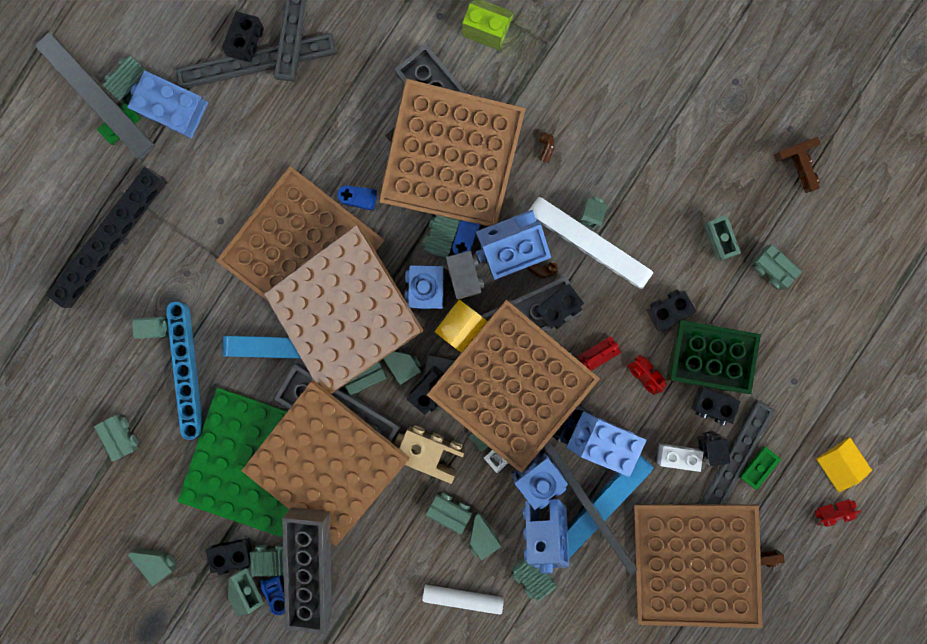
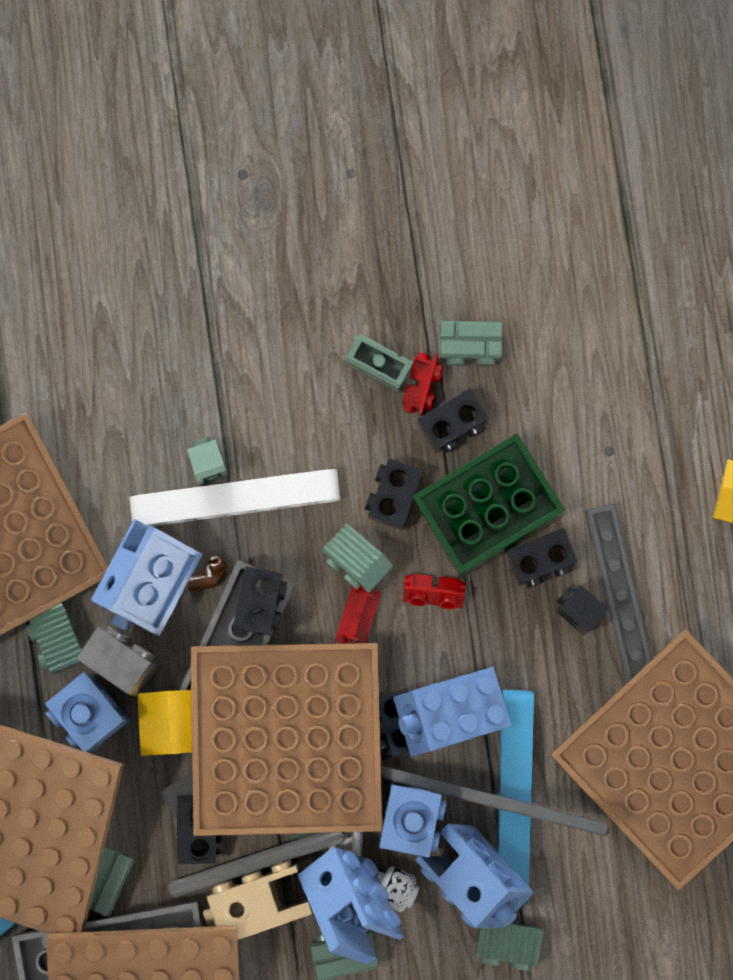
camera: 40 degrees left, 5 degrees down
(403, 365) = (140, 828): sand green slope -> none
(443, 430) = (254, 862): none -> light grey axle
(465, 234) = (83, 613): blue piece -> none
(474, 492) = (348, 903): none -> medium blue torso
(483, 539) = (412, 952): sand green slope -> none
(501, 504) = (400, 887): none -> white head
(548, 149) = (93, 431): reddish brown arm -> none
(625, 326) = (357, 558): none -> sand green brick
(679, 457) = (553, 653): white brick -> none
(726, 273) = (421, 396): none -> red hinge
(732, 296) = (449, 415): none -> black brick
(760, 467) = (656, 584): green plate -> none
(802, 163) = (396, 199): reddish brown bracket -> none

